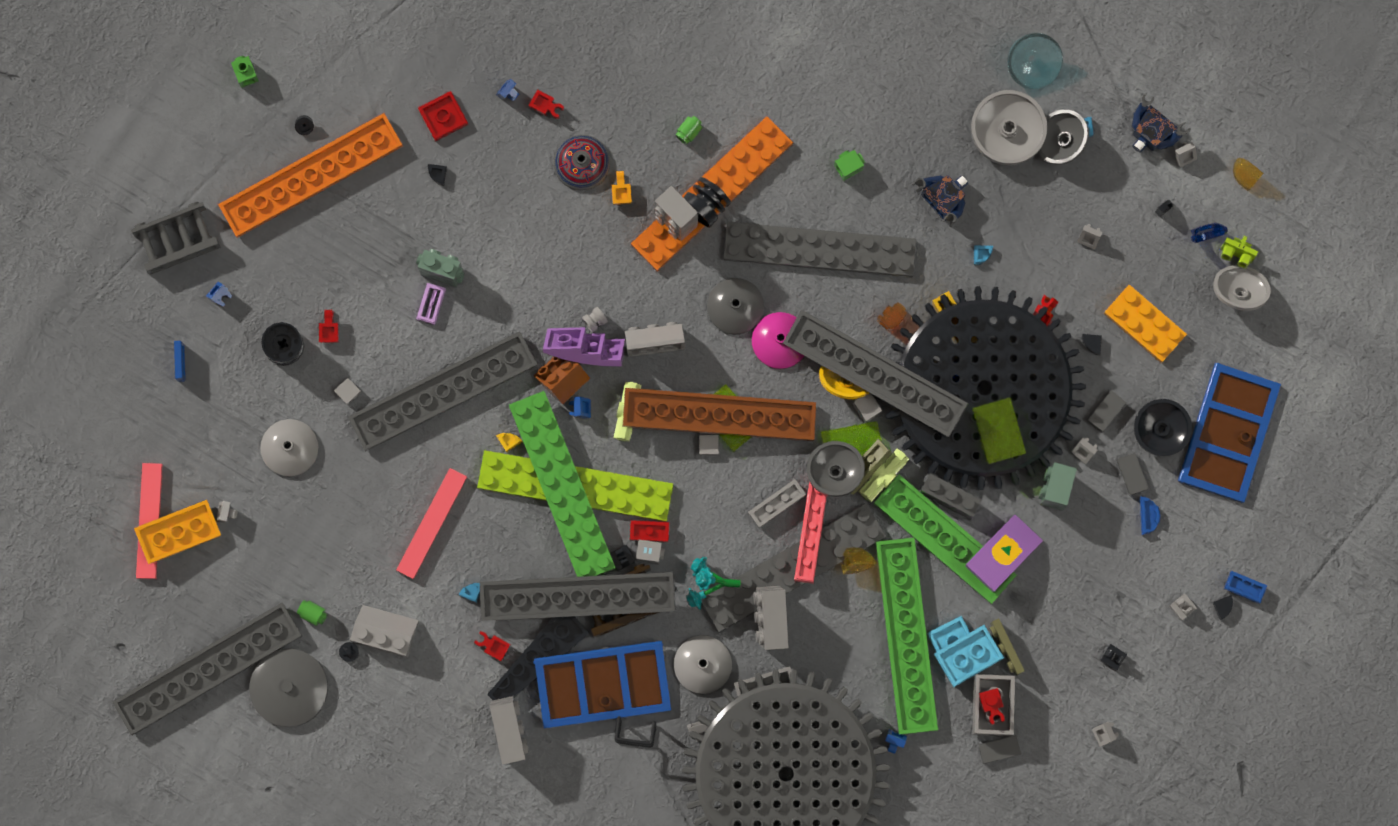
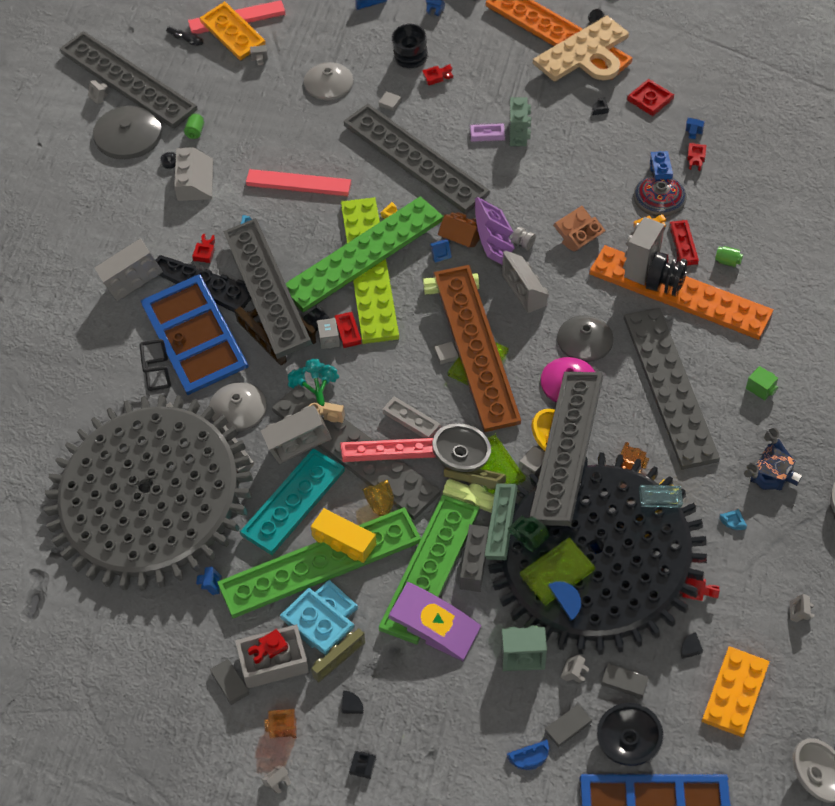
camera: 75 degrees right, 25 degrees down
(162, 582) = (191, 37): none -> black animal
(217, 706) = (96, 91): none -> light grey tile
(353, 160) = (582, 48): none -> tan plate
(550, 146) = (661, 165): none -> blue plate
(605, 261) = (578, 229): none -> nougat brick
(652, 164) = (684, 242): none -> red tile
(755, 576) = (331, 411): none -> tan plate
(833, 641) = (292, 501): none -> teal plate
(895, 607) = (343, 535): none -> yellow brick
(929, 460) = (500, 521): none -> sand green plate
(957, 441) = (529, 532): none -> clear green brick
(963, 313) = (660, 496): none -> clear light blue tile
(1031, 431) = (567, 597): none -> blue tile
(1054, 649) = (351, 703): none -> black tile
(1063, 710) = (281, 717): none -> clear orange brick

